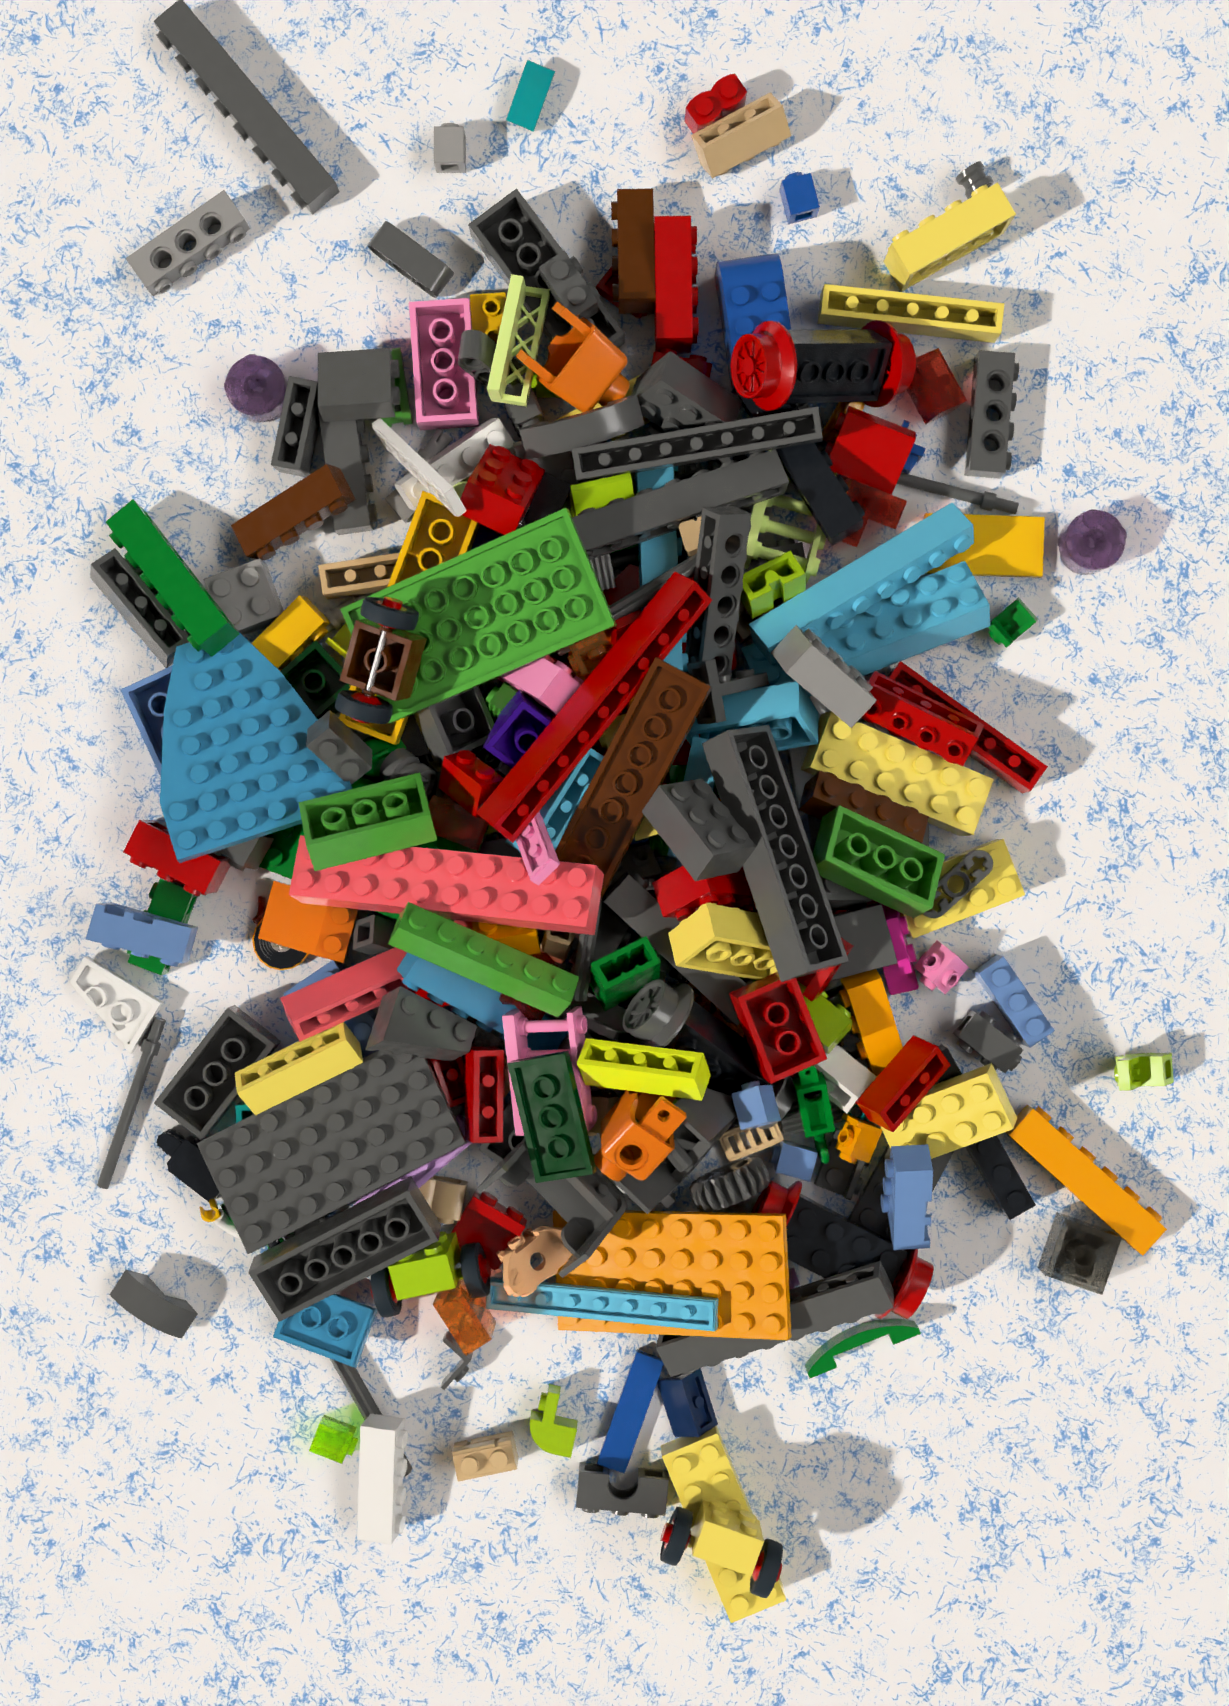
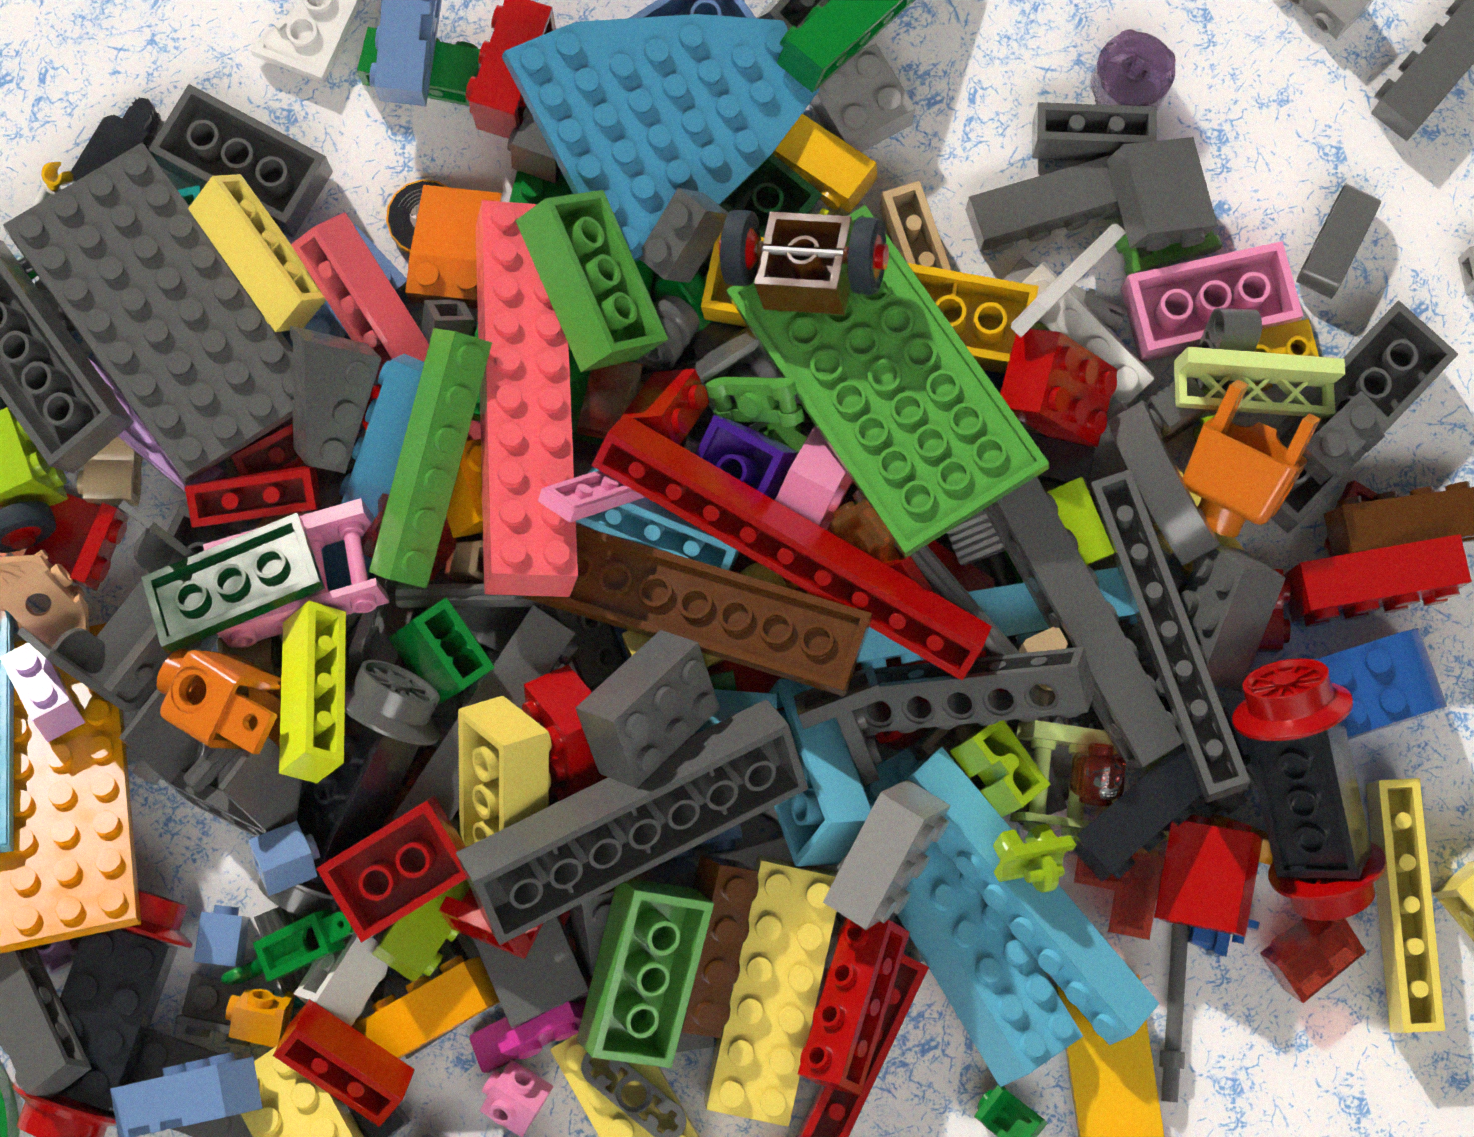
camera: 80 degrees right, 10 degrees down
(149, 1048) = (260, 74): dark grey bar -> none
(261, 909) = (465, 185): clear red leg -> none
(293, 512) = (982, 141): reddish brown brick -> none
(476, 715) = (756, 400): none -> bright green plate
(604, 1265) = (42, 692): none -> brick
(729, 1184) = (175, 850): dark grey gear -> none
(765, 1142) = (248, 907): tan slope -> none
(786, 515) = (1098, 775): none -> clear red head
(844, 570) = (1035, 861): none -> lime hips
(1002, 368) = (1355, 1028): dark grey brick -> none

